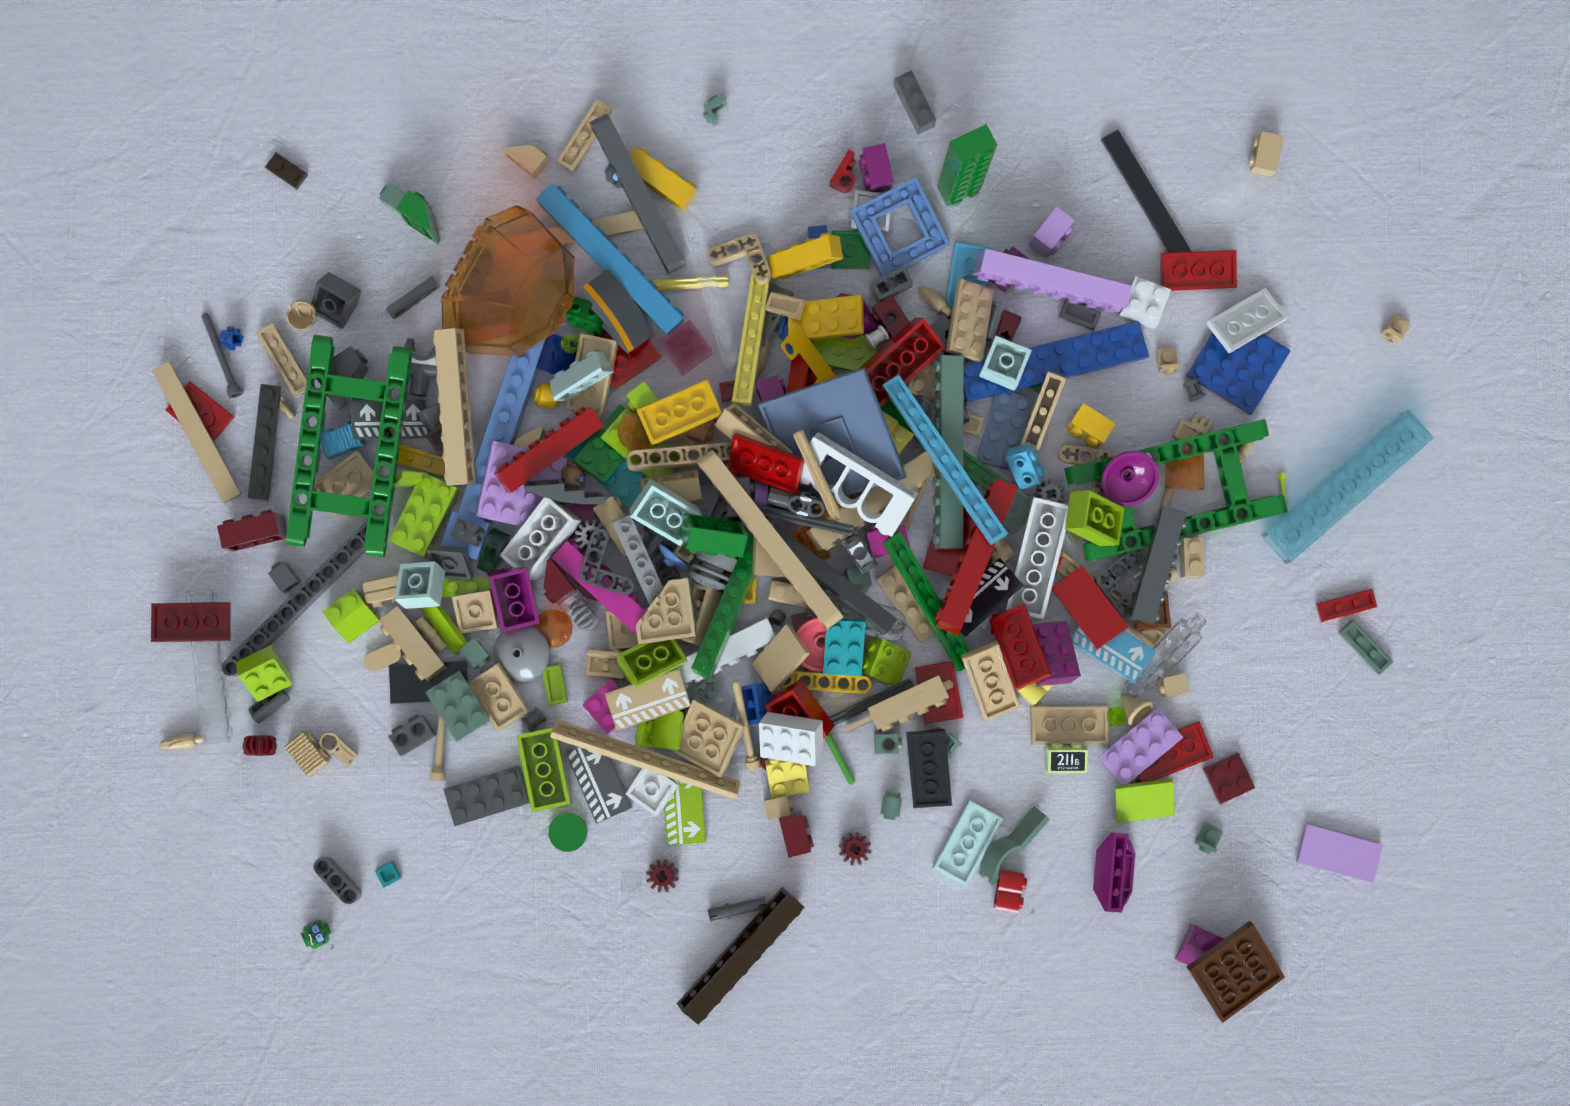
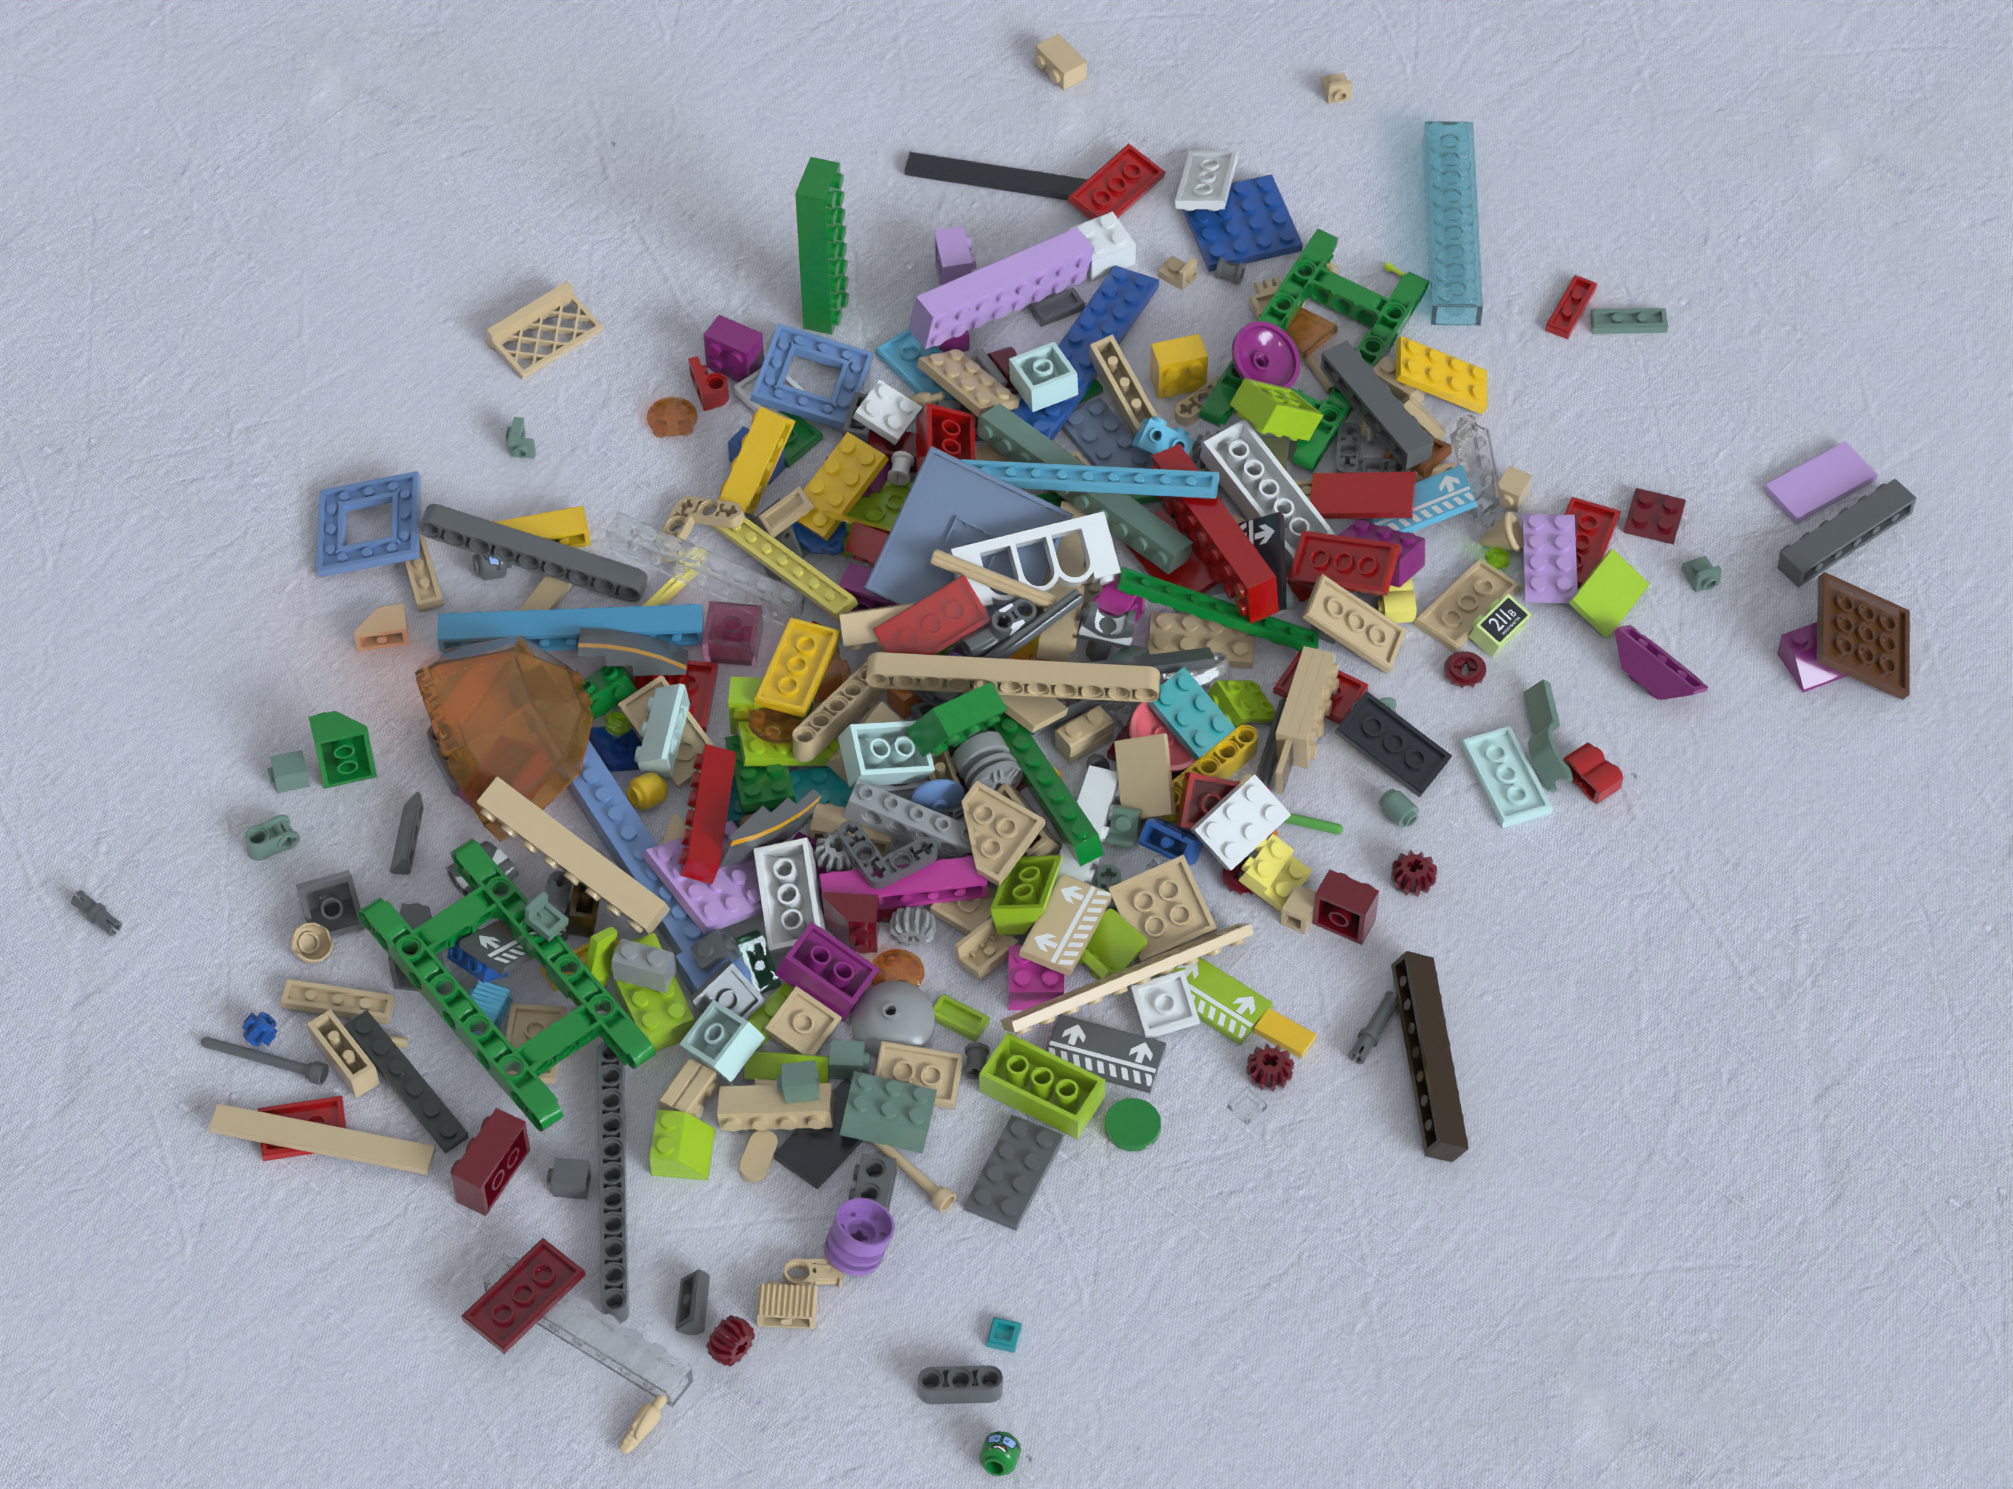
camera: 45 degrees left, 30 degrees down
(227, 186) = (96, 913): none -> dark grey pin
(248, 396) = (343, 1053): none -> tan brick
(264, 673) = (657, 1268): lime brick -> none
(286, 171) = (143, 850): dark brown plate -> none
(351, 229) = (270, 838): none -> sand green piece
(380, 763) = (859, 1236): none -> medium lavender wheel
(394, 435) = (544, 917): none -> sand green bracket
(422, 506) = (643, 965): none -> light grey brick
(425, 650) = (799, 1082): none -> sand green brick
(583, 52) = (334, 503): none -> medium blue plate
(693, 863) = (1285, 1032): none -> yellow tile
(745, 669) = (1124, 826): none -> sand green bracket
(752, 761) = (1225, 894): tan piece -> none
(802, 32) = (528, 318): none -> tan fence
(807, 174) = (672, 417): none -> clear orange dish
(878, 743) = (1326, 774): sand green brick -> none
(905, 296) = (887, 412): none -> white plate
(914, 102) = (702, 280): dark grey brick -> none
(1030, 763) = (1455, 663): none -> dark red gear
(1178, 595) = (1428, 422): none -> tan plate
(1217, 580) = (1441, 375): none -> yellow plate
(1312, 899) = (1846, 532): none -> dark grey brick

